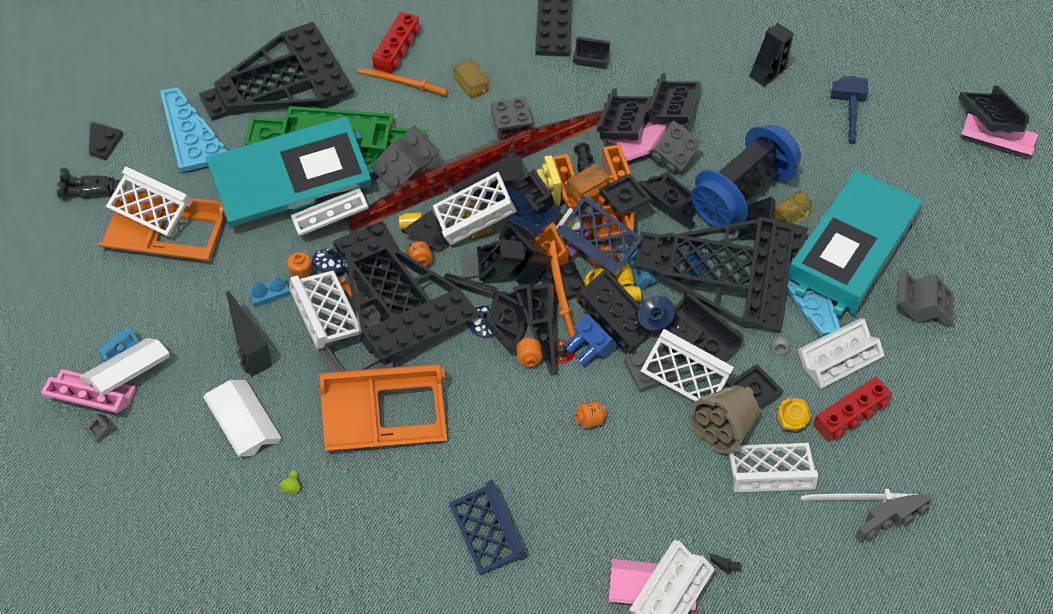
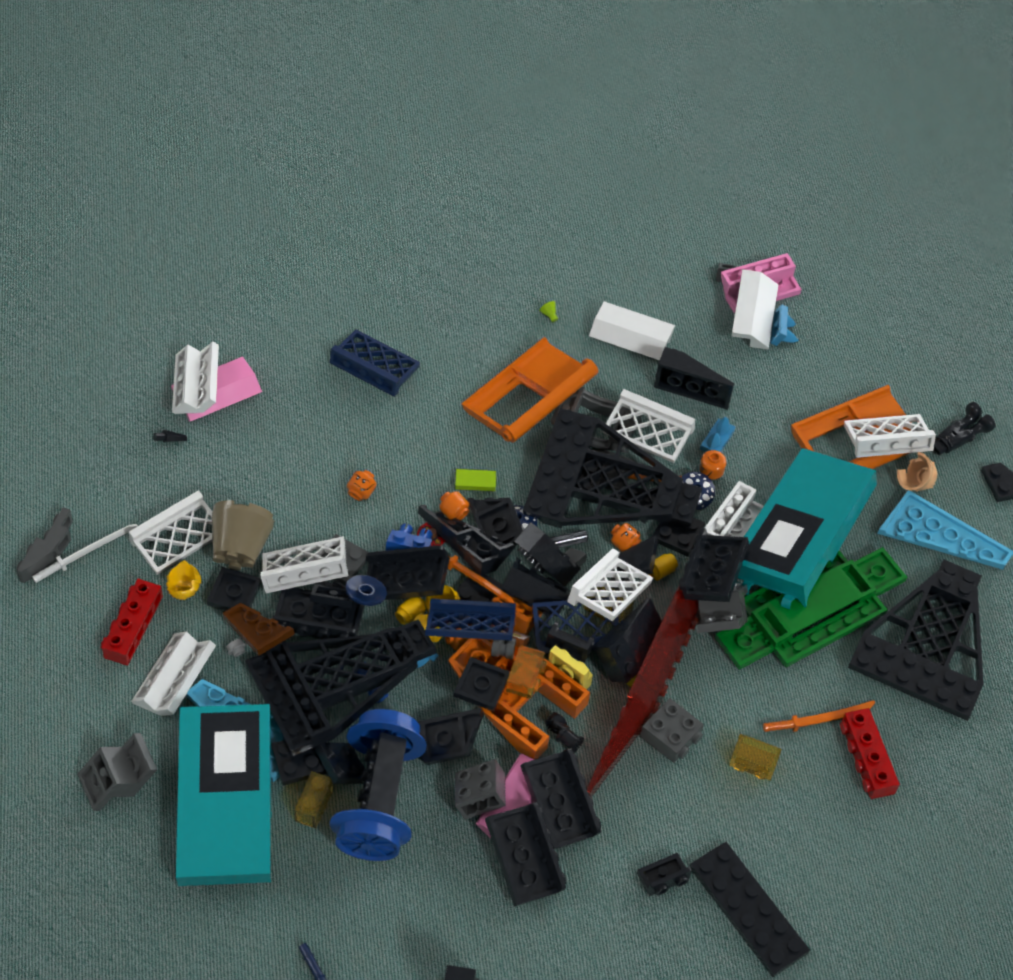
camera: 140 degrees right, 0 degrees up
(162, 167) = (920, 474): none -> light nougat helmet
(390, 169) = (713, 567): none -> black bracket
(491, 370) = (475, 480): none -> lime tile
(761, 336) = (255, 629): none -> reddish brown wing

